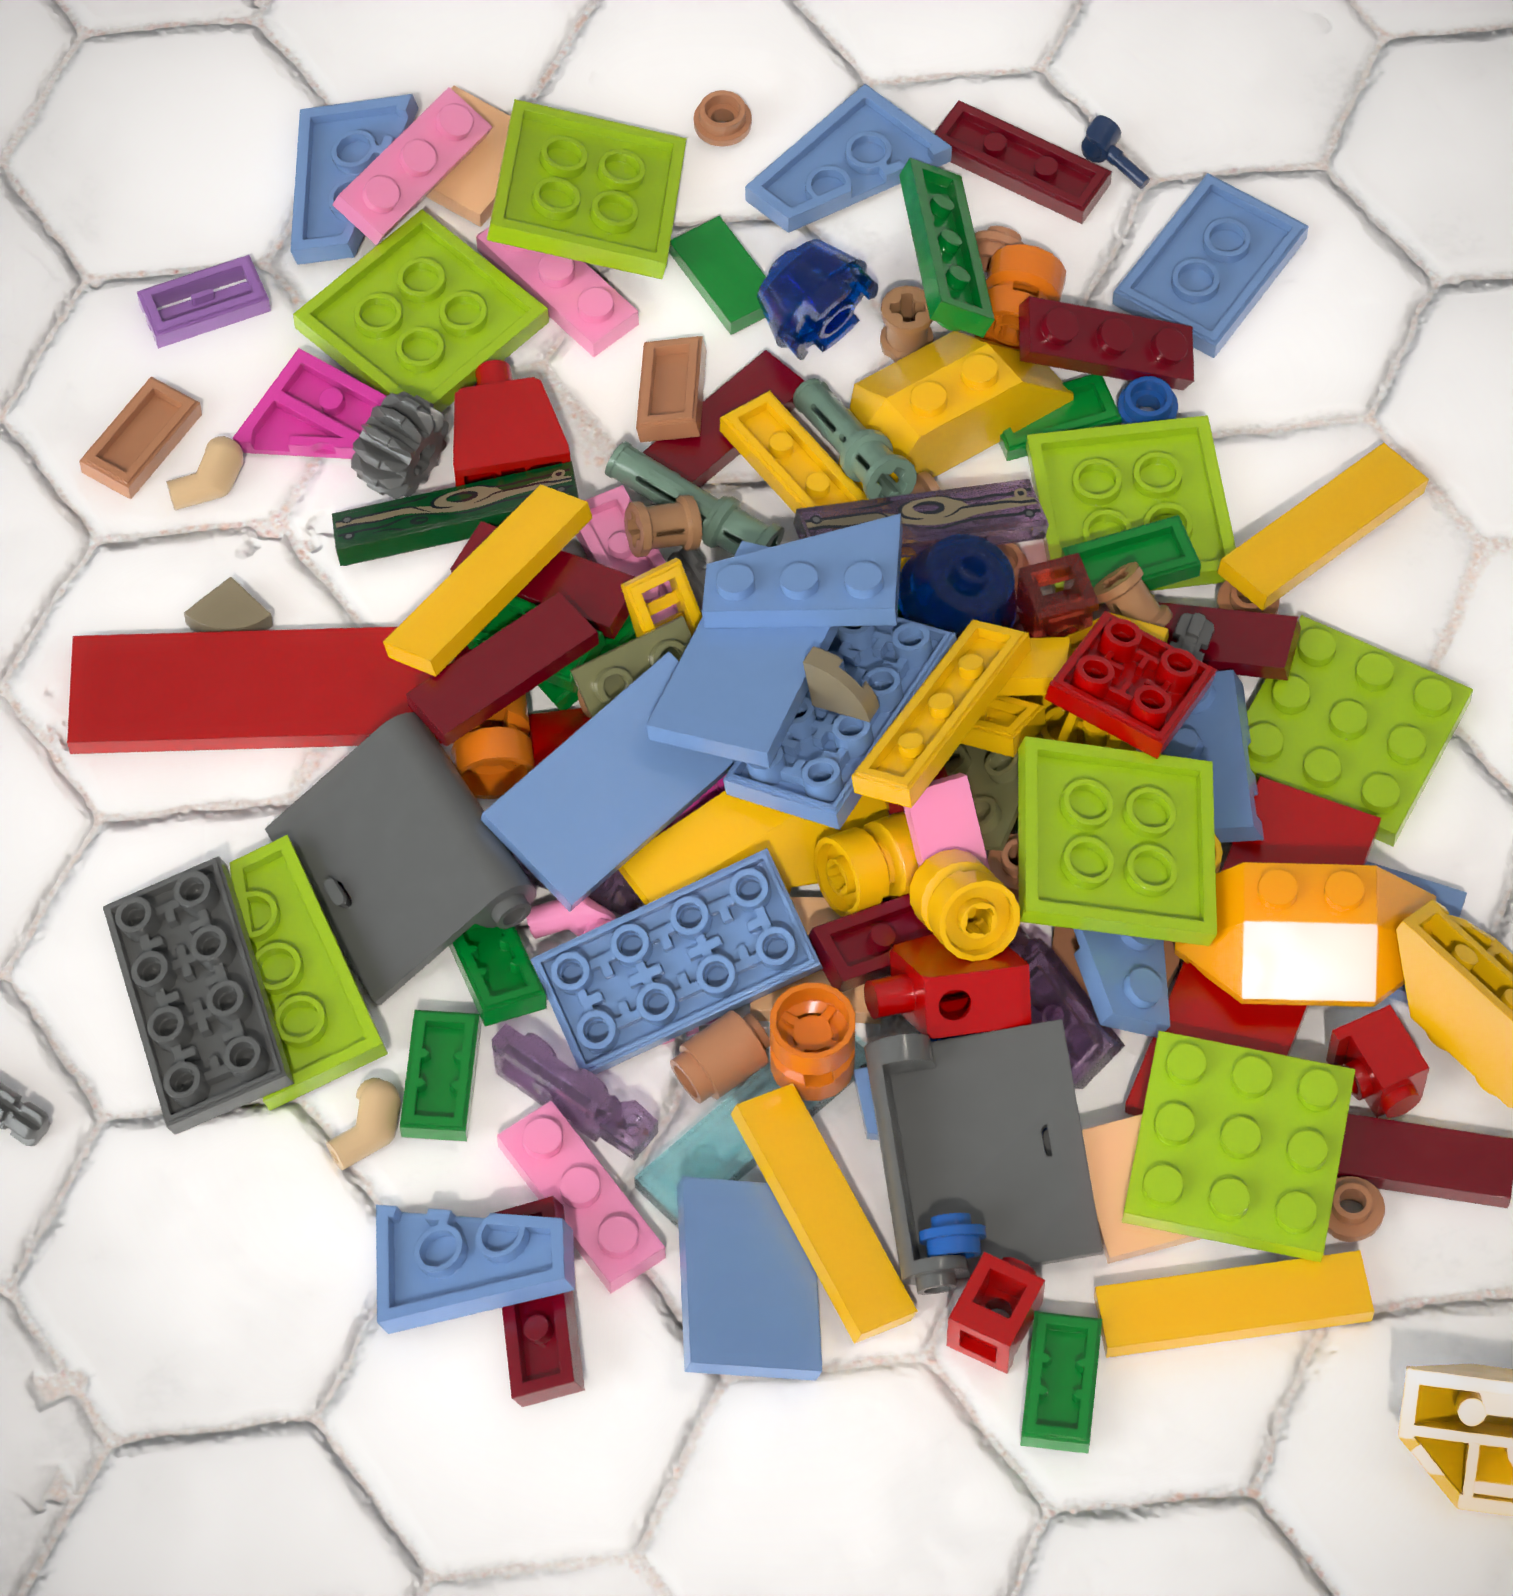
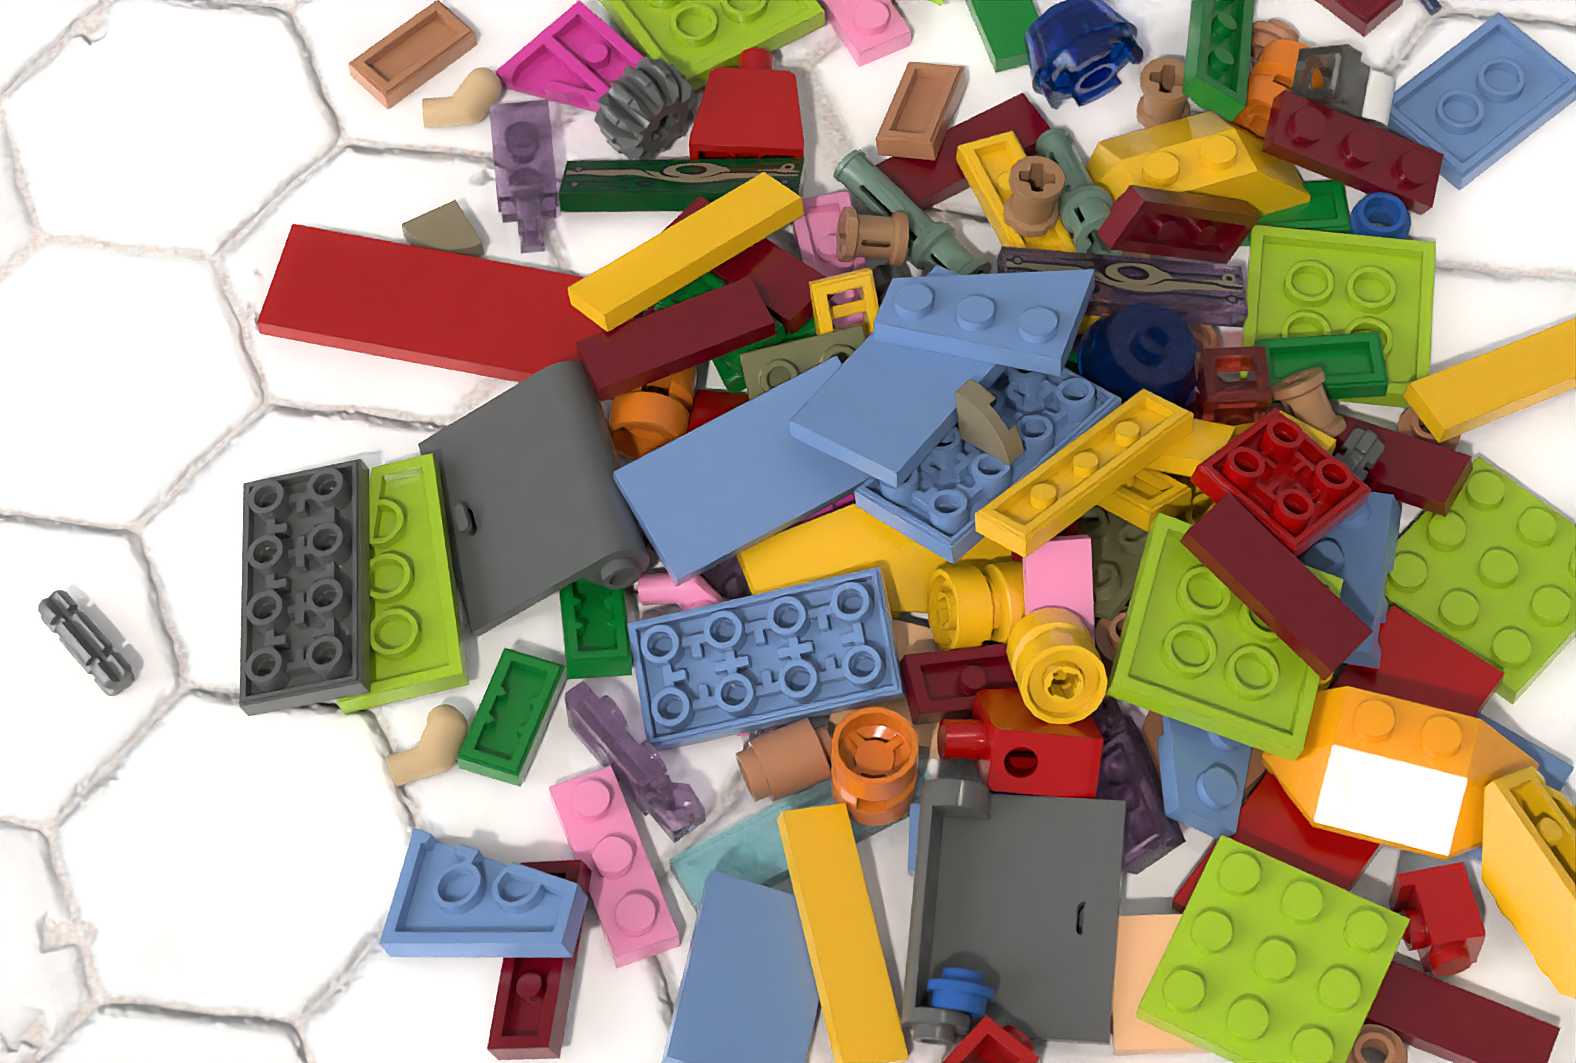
camera: 15 degrees right, 0 degrees up
(291, 530) = (524, 168): none -> clear purple hinge
(813, 443) = (1035, 187): none -> medium nougat bush
(959, 451) = (1177, 224): none -> dark red plate
(1084, 277) = (1348, 83): none -> clear smoke leg
(1153, 782) = (1276, 586): none -> dark red tile

